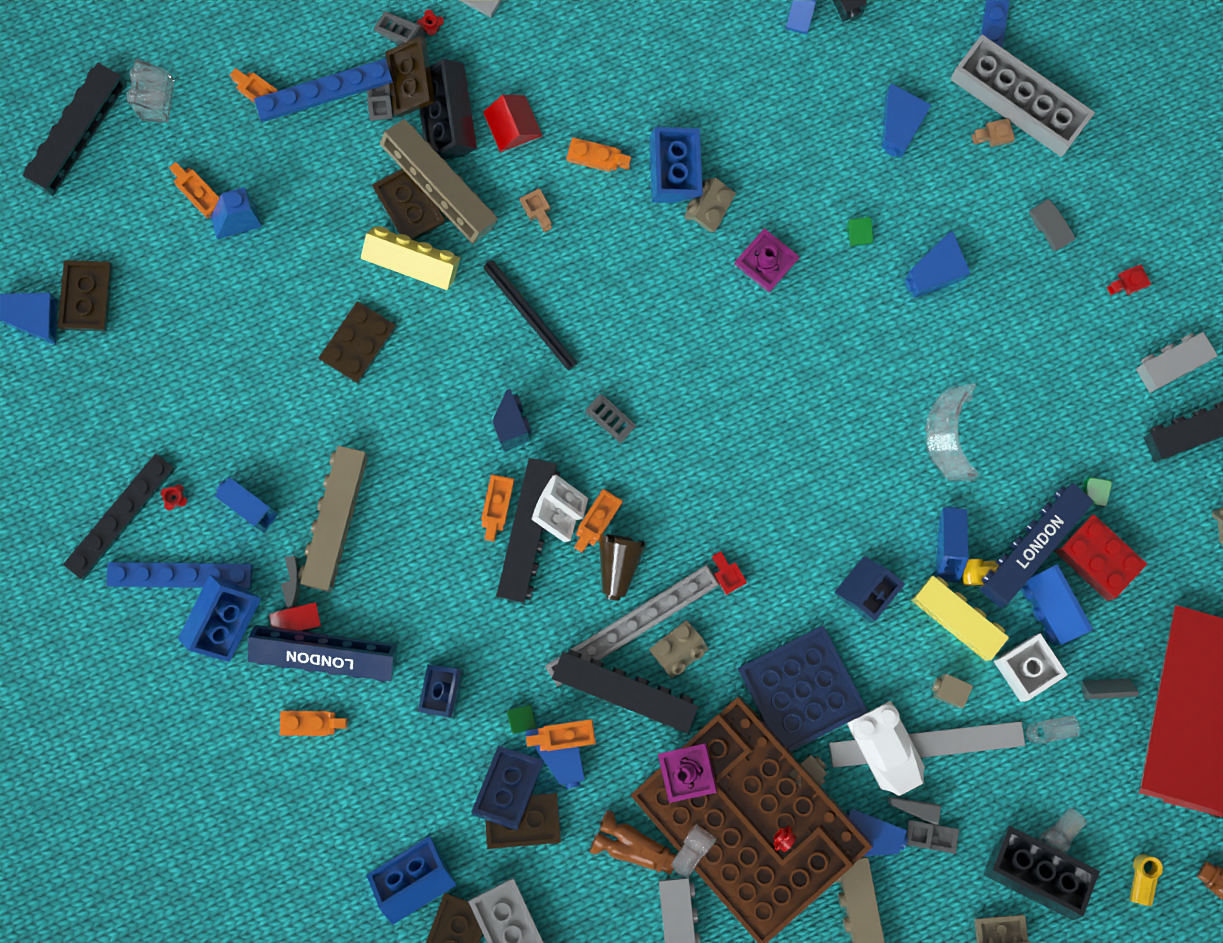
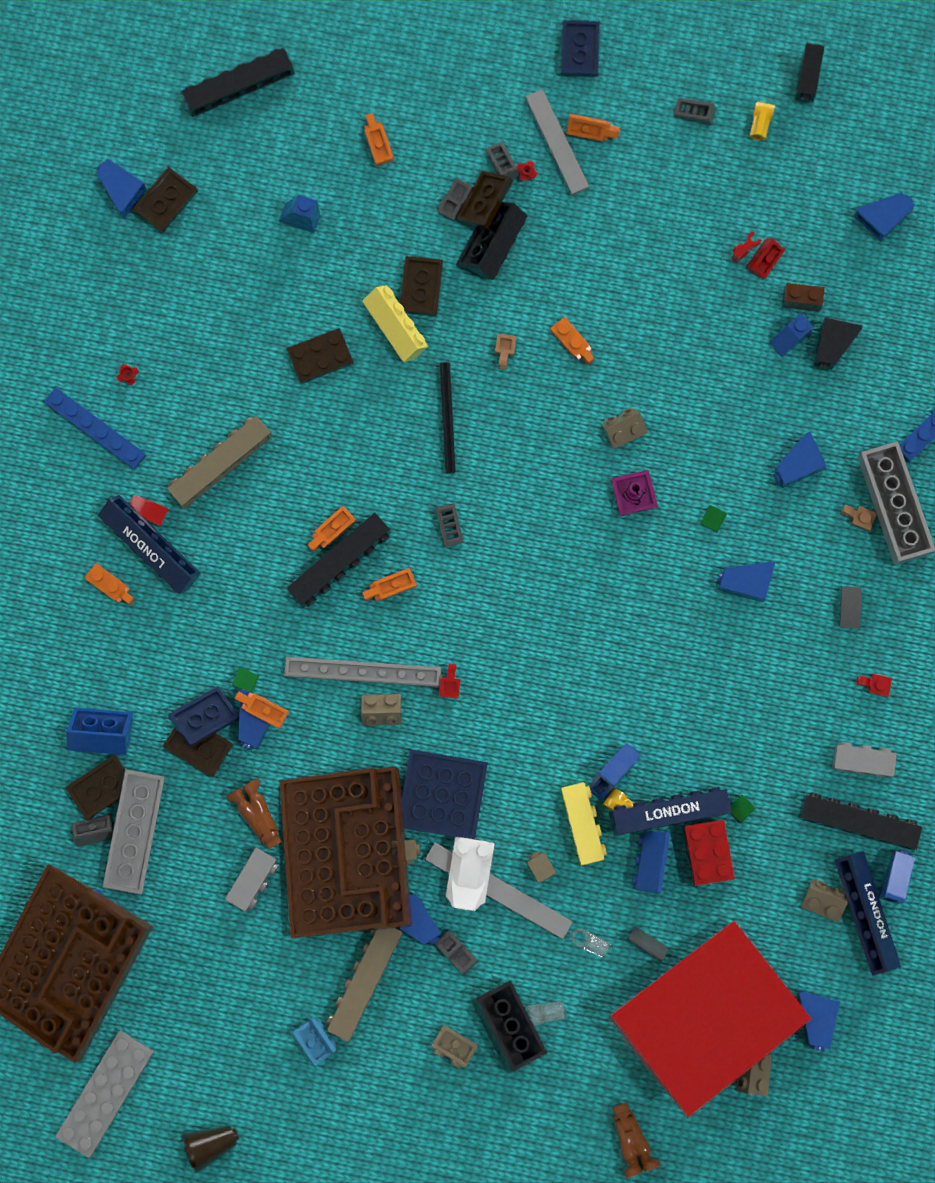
camera: 40 degrees right, 0 degrees up
(119, 516) = (84, 362): black plate -> none
(150, 91) = (304, 91): clear slope -> none
(195, 189) = (287, 178): orange hinge -> none
(218, 619) = (99, 474): blue slope -> none
(246, 504) = (169, 412): blue slope -> none
(292, 588) = (160, 488): dark grey slope -> none
(323, 90) = (420, 169): blue plate -> none
(438, 181) = (451, 284): dark tan brick -> none
(441, 691) = (207, 624): dark blue slope -> none
(509, 424) = (378, 480): dark blue slope -> none
(511, 122) = (532, 277): red slope -> none
(560, 508) = (370, 560): white slope -> none
(619, 563) = (382, 624): dark brown cone -> none
(625, 692) = (324, 710): black brick -> none
(675, 164) = (619, 384): blue slope -> none
(677, 784) = (319, 789): magenta plate -> none
(696, 846) = (297, 842): clear piece -> none
(784, 839) = (355, 878): red plate -> none
(869, 589) = (536, 761): dark blue slope -> none
(925, 811) = (463, 931): dark grey slope -> none
(943, 436) = (665, 693): clear windscreen -> none
(1030, 667) = (604, 889): white brick -> none
(1145, 883) = (573, 1084): yellow piece -> none

